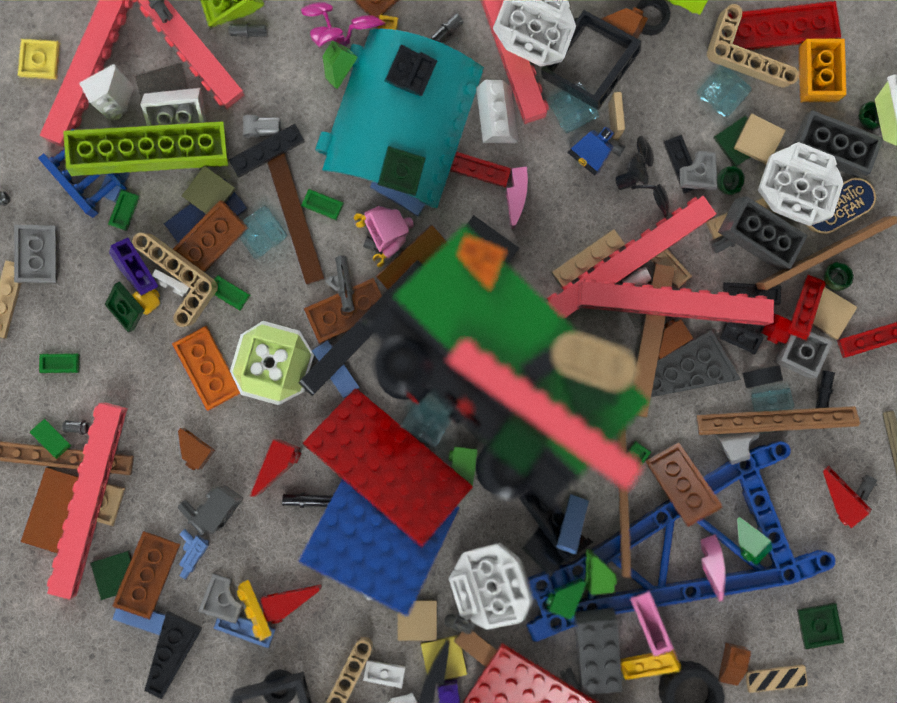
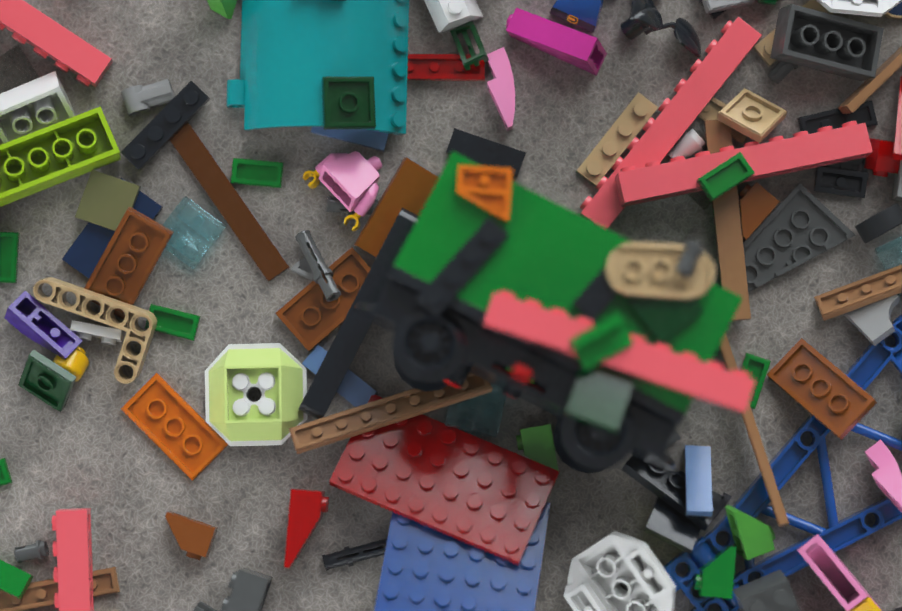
camera: 15 degrees left, 0 degrees up
(357, 404) = (382, 413): none -> medium nougat tile
(444, 314) = (462, 268): none -> black plate
(502, 168) = (474, 59): none -> dark green tile
(533, 402) = (601, 341): none -> green panel
(567, 174) = (557, 40): none -> dark pink slope
(620, 358) = (689, 257): none -> dark grey pin
(660, 308) = (725, 176): none -> green tile
(691, 270) = (751, 115): none -> tan tile

